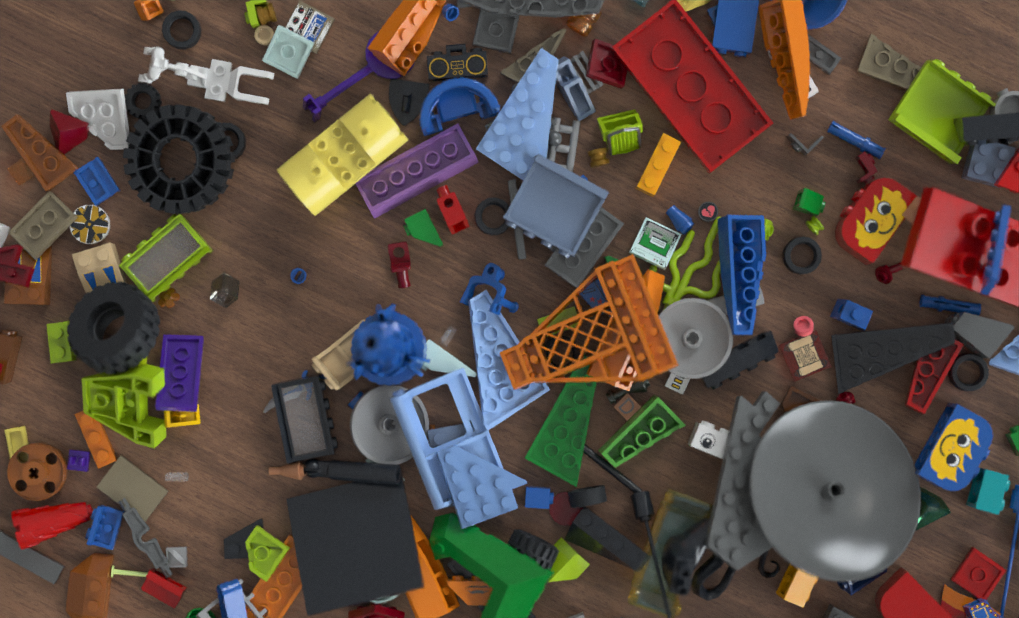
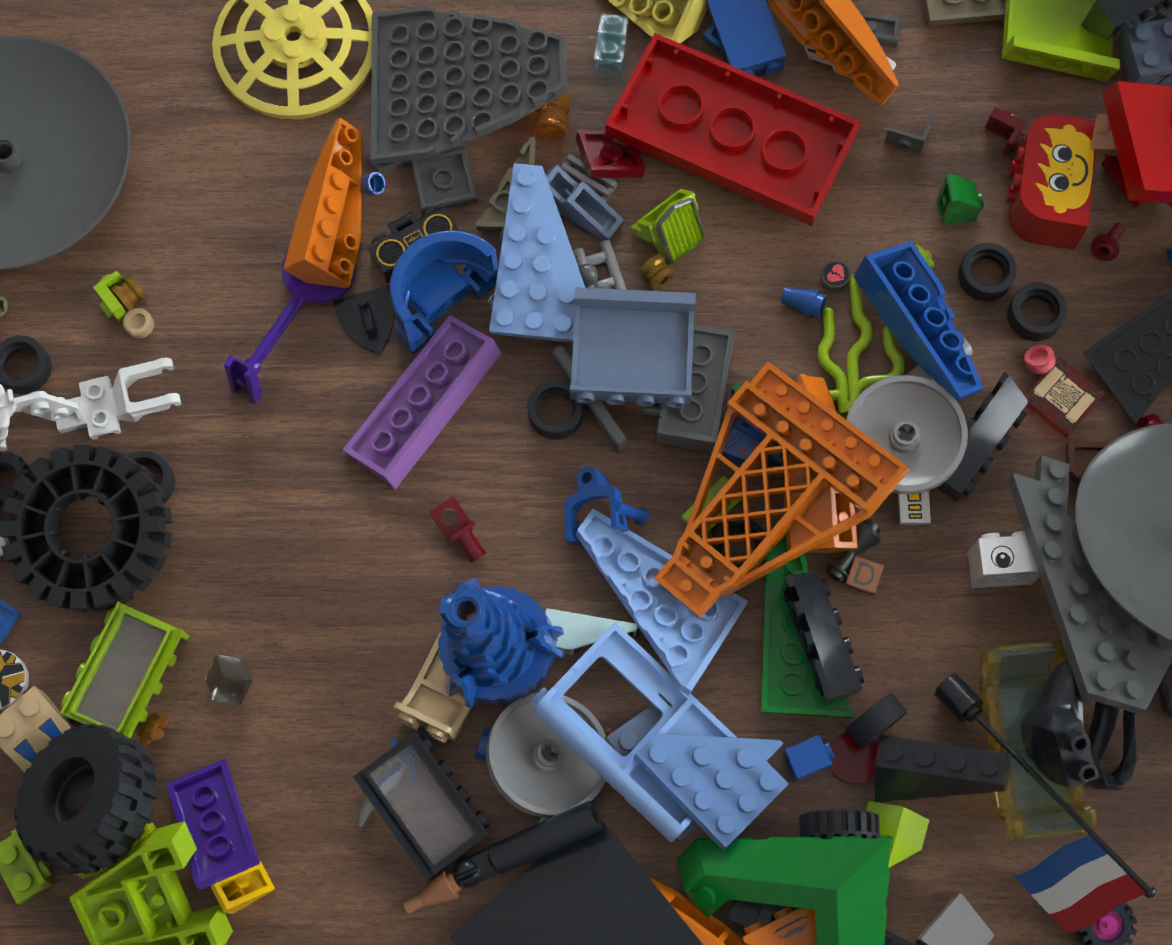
camera: 25 degrees left, 15 degrees down
(288, 51) = (179, 327): light aqua tile -> none
(301, 278) = (329, 614): blue hinge -> none
(310, 24) = (192, 287): tile -> none
(342, 154) = (311, 415): light yellow cylinder -> none
(422, 228) = (468, 469): green slope -> none
(447, 336) = (570, 596): clear tile -> none
(453, 215) = (497, 426): red torso -> none
(579, 434) = (821, 637): none -> black wedge
(611, 470) = (898, 674): black bar -> none
(641, 431) = (903, 593): bright green wedge -> none
(655, 243) = (789, 344): tile -> none
(658, 165) = (740, 245): light orange brick -> none
(814, 225) = (982, 228): lime bush -> none
(833, 295) = (1048, 294): none -> black tyre
(851, 314) = (1098, 311): blue torso -> none
(855, 139) = (974, 103): blue pin -> none

